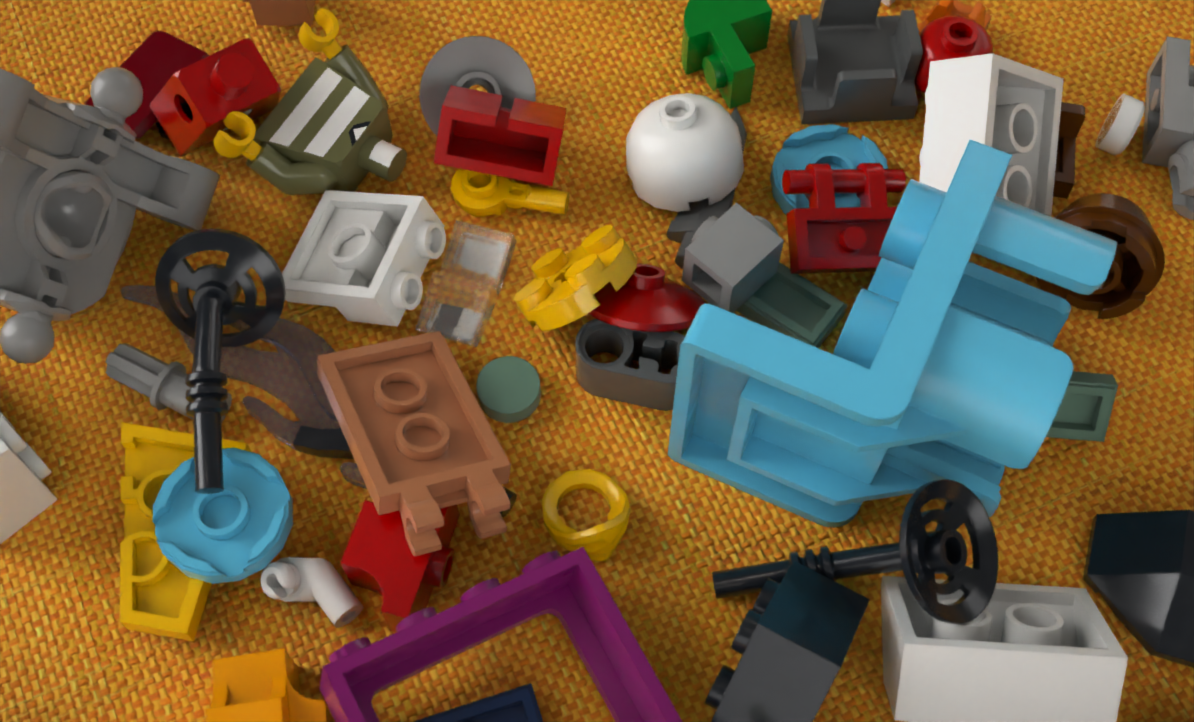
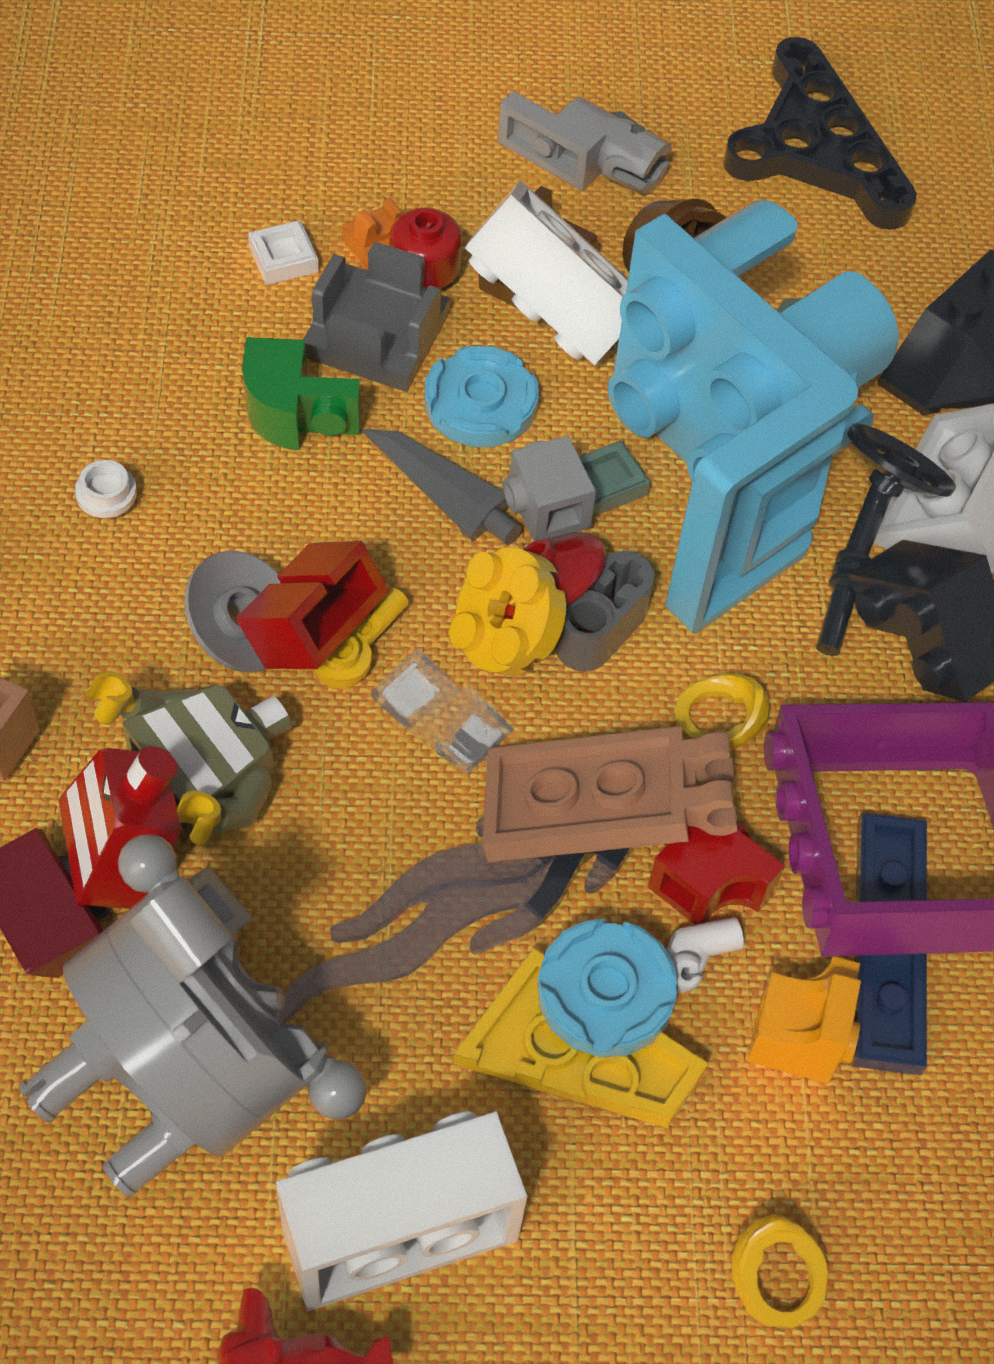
camera: 70 degrees left, 5 degrees down
(152, 378) = (422, 1006): light grey axle -> none
(212, 307) = (396, 901): black dish -> none
(365, 255) = (371, 778): white plate -> none
(508, 389) = (570, 716): sand green tile -> none
(684, 152) = (407, 480): white cylinder -> none
(839, 238) = (563, 405): red plate -> none
(1120, 125) = (554, 173): white tile -> none

